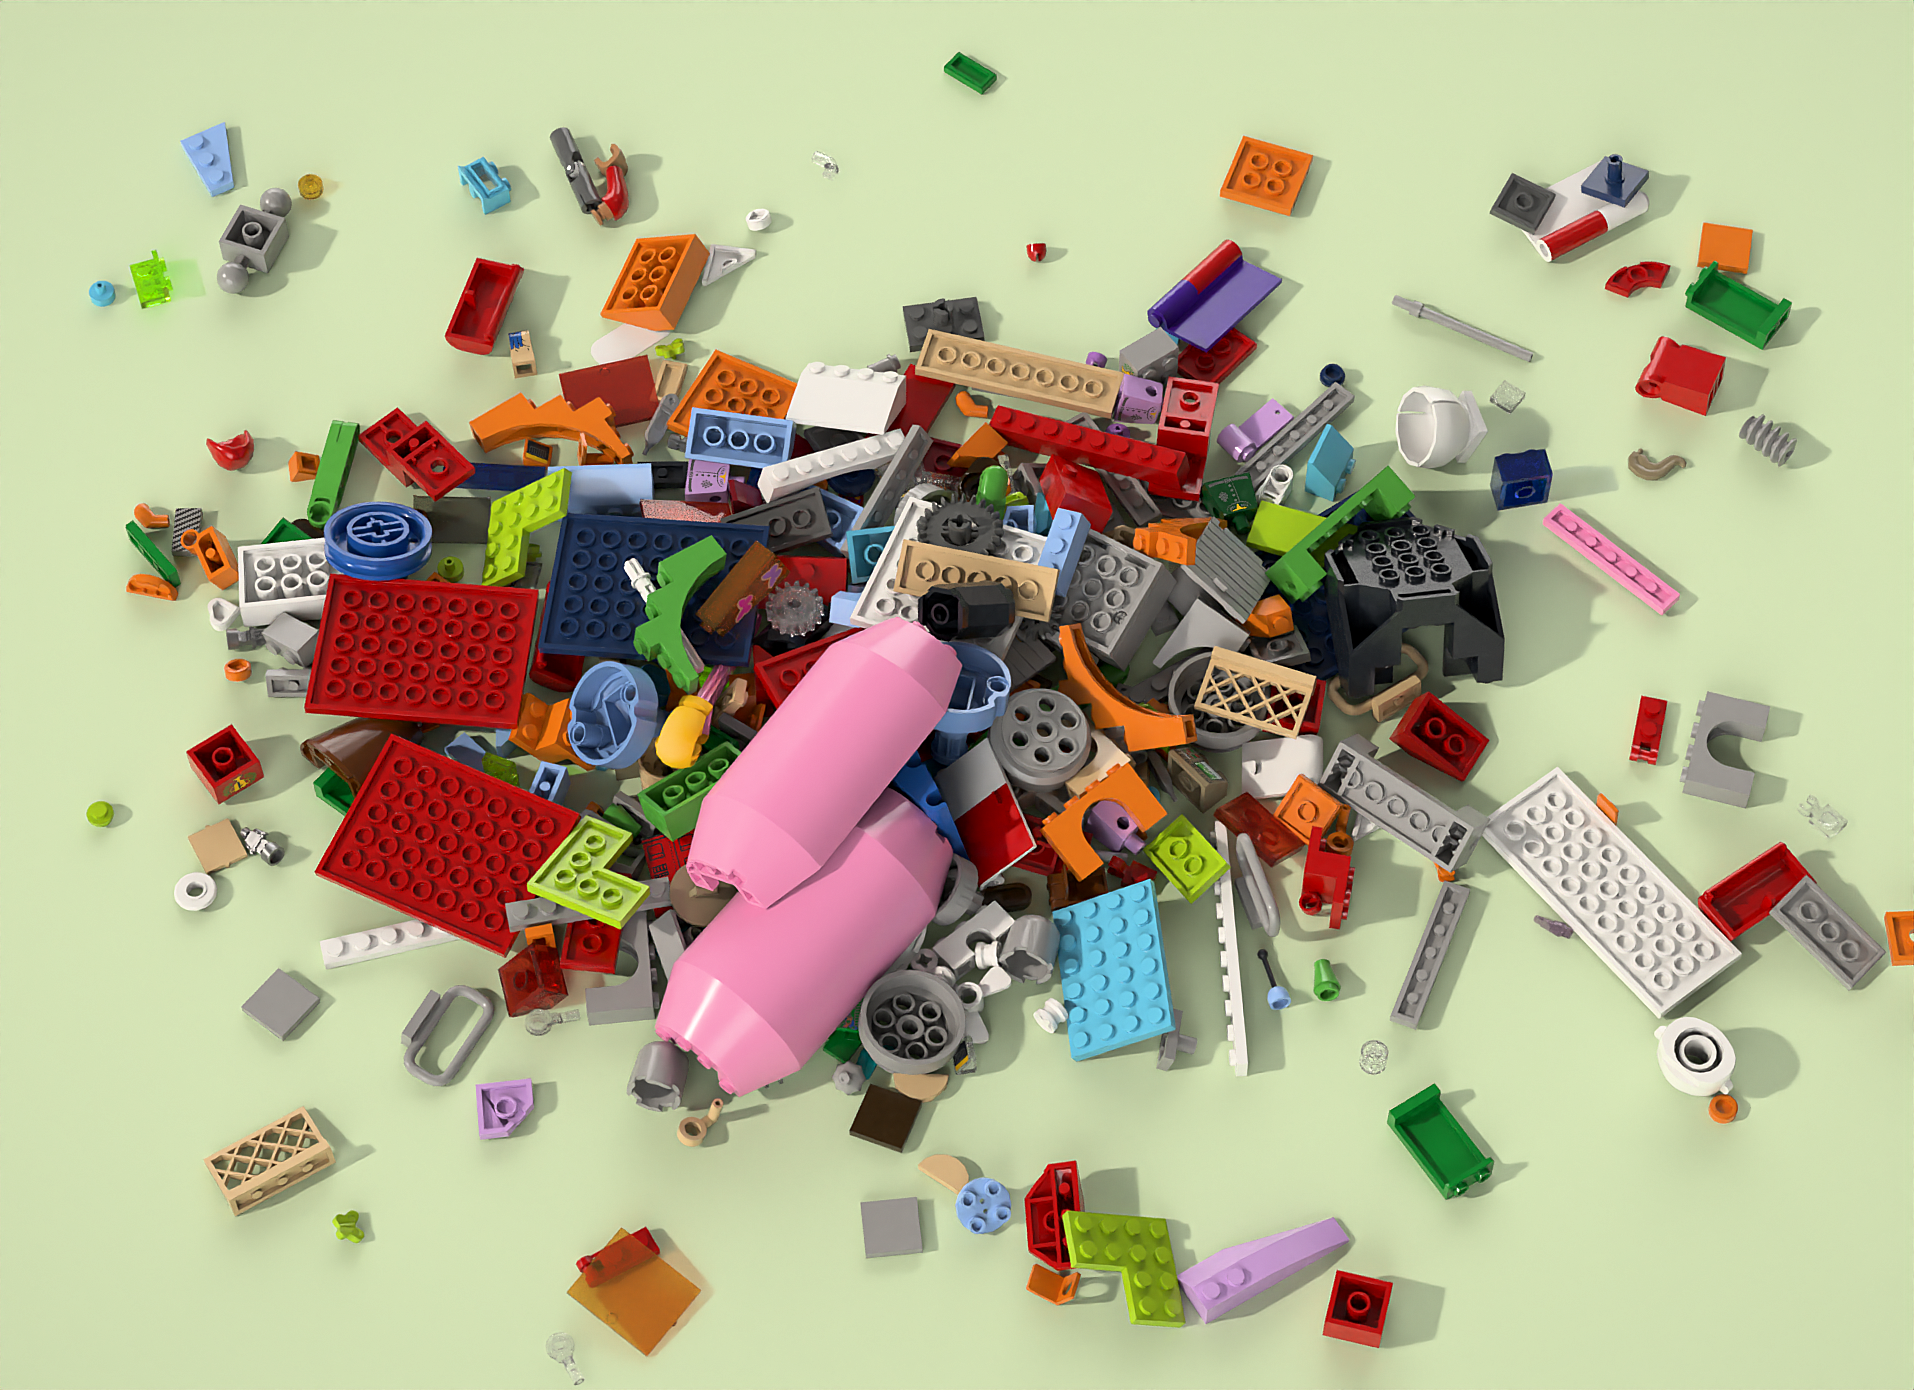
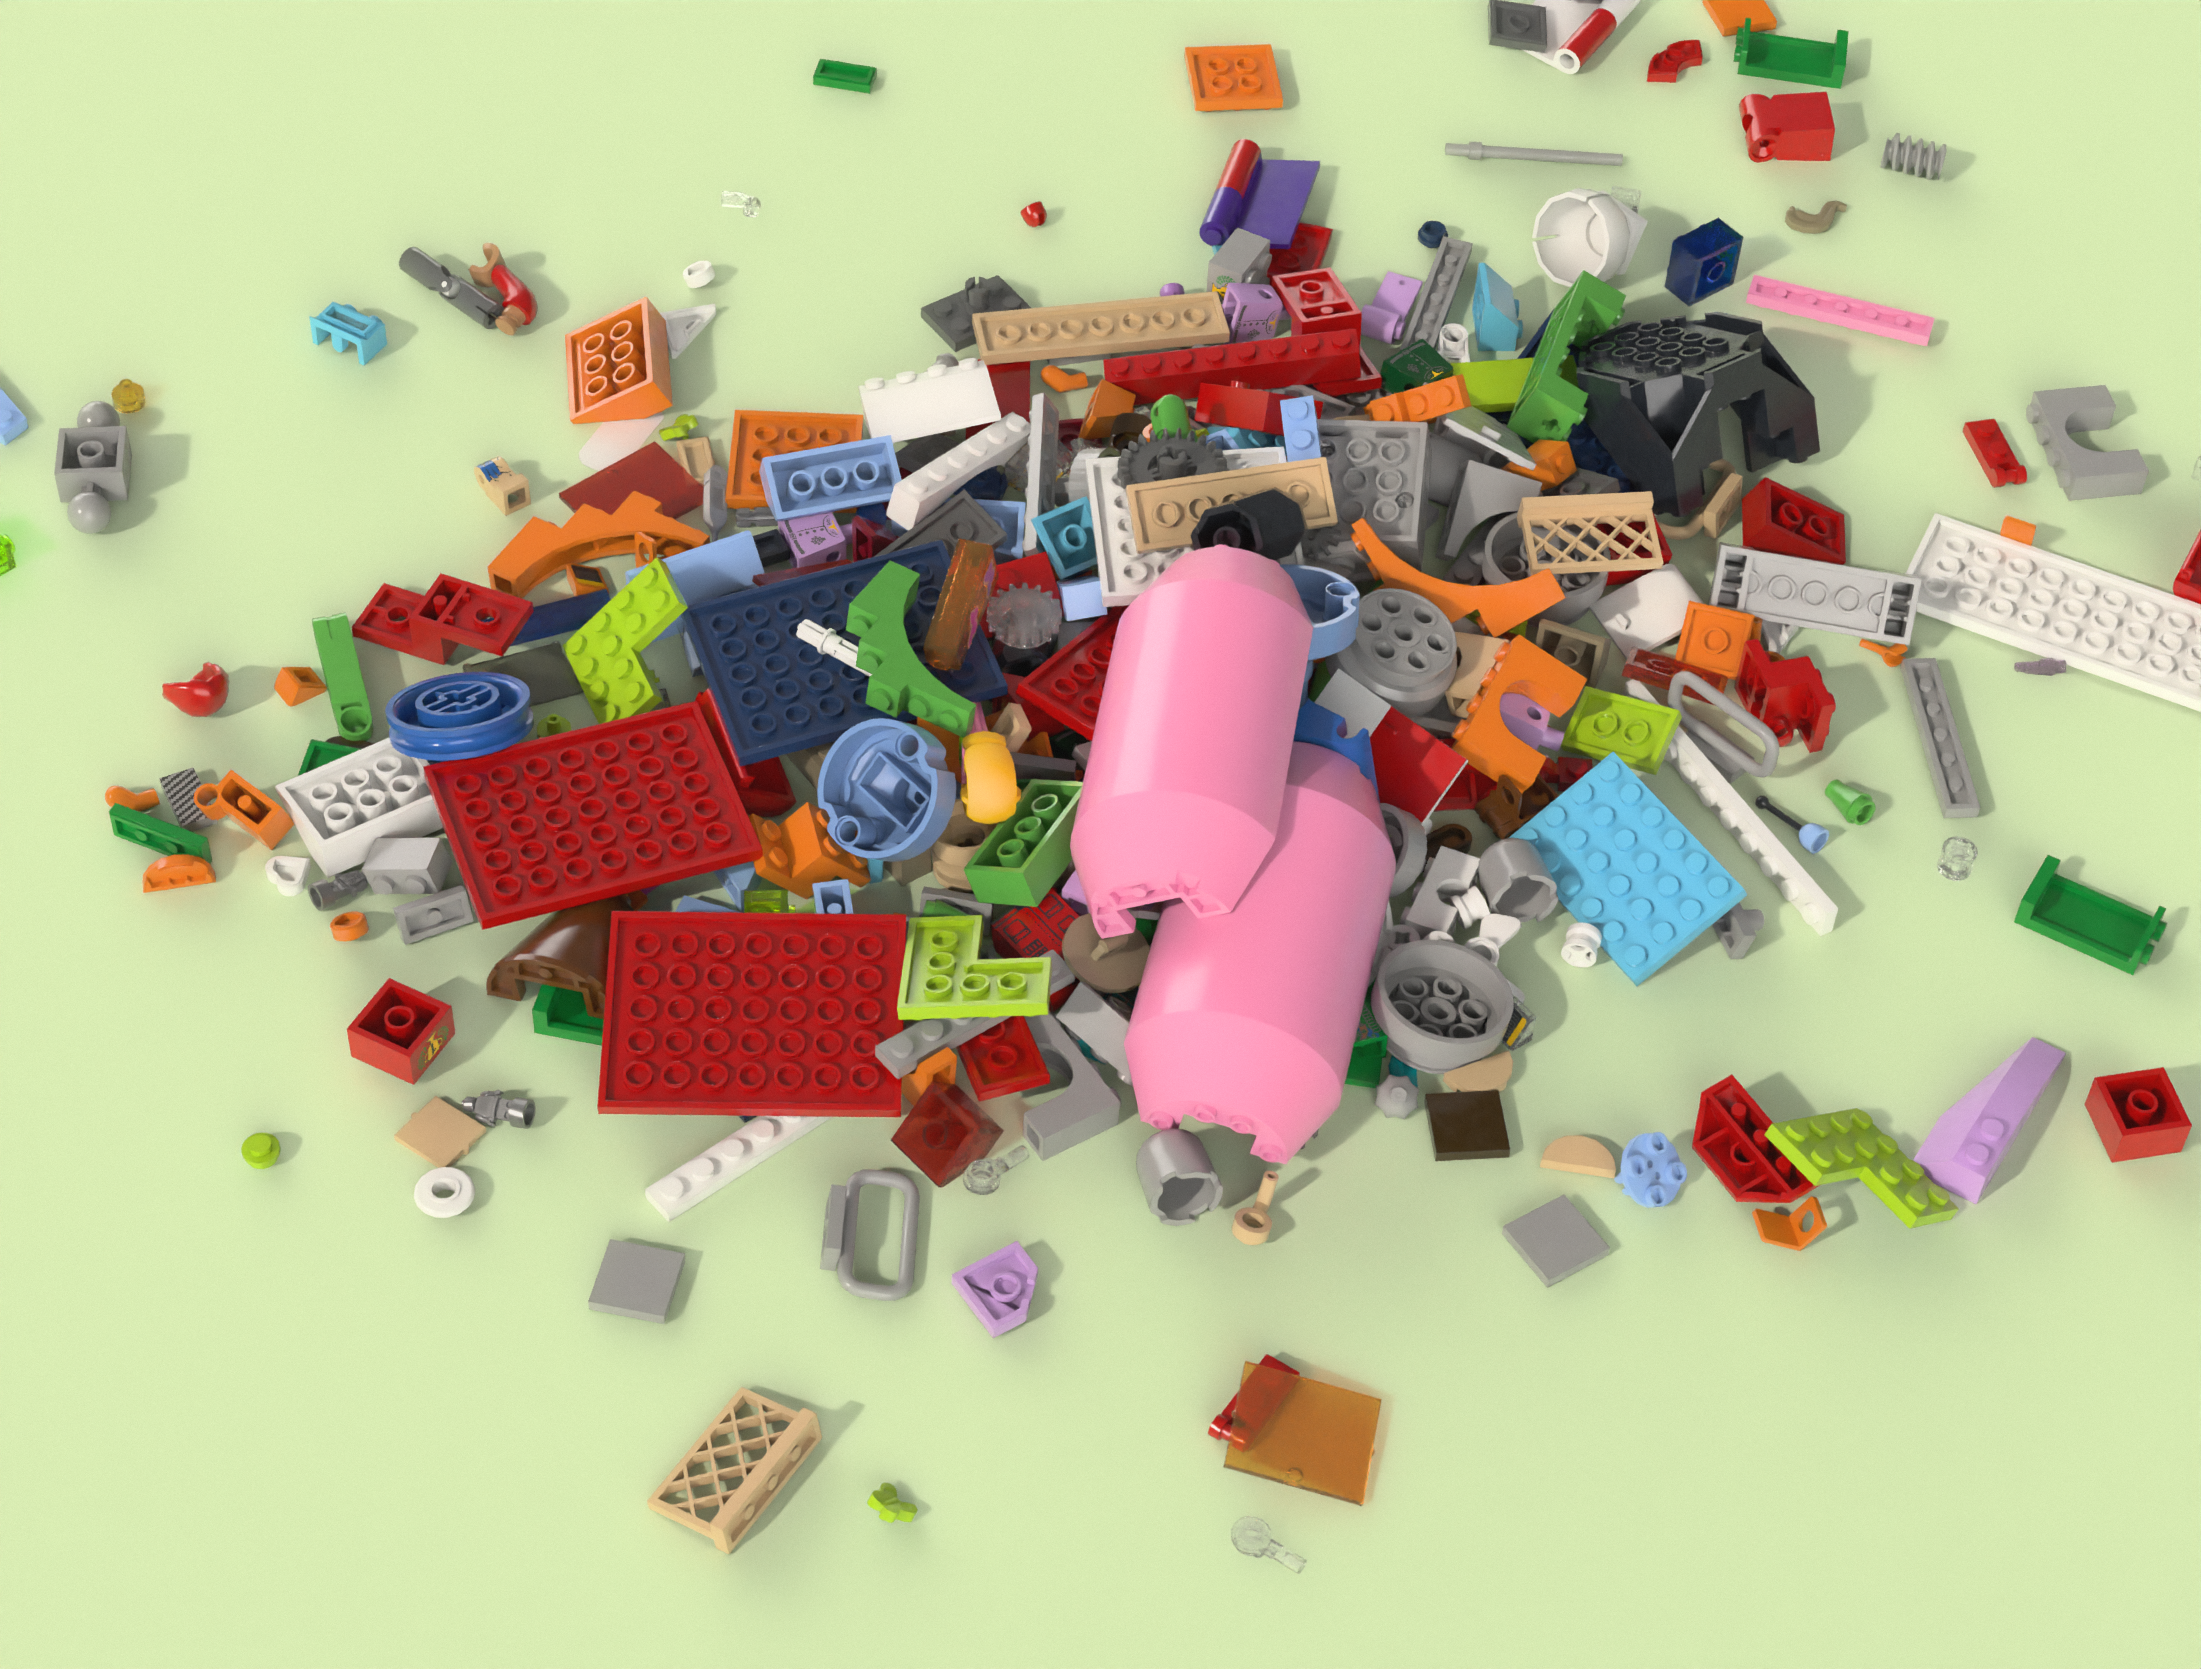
camera: 30 degrees left, 10 degrees down
(483, 306) = (429, 449): red container -> none

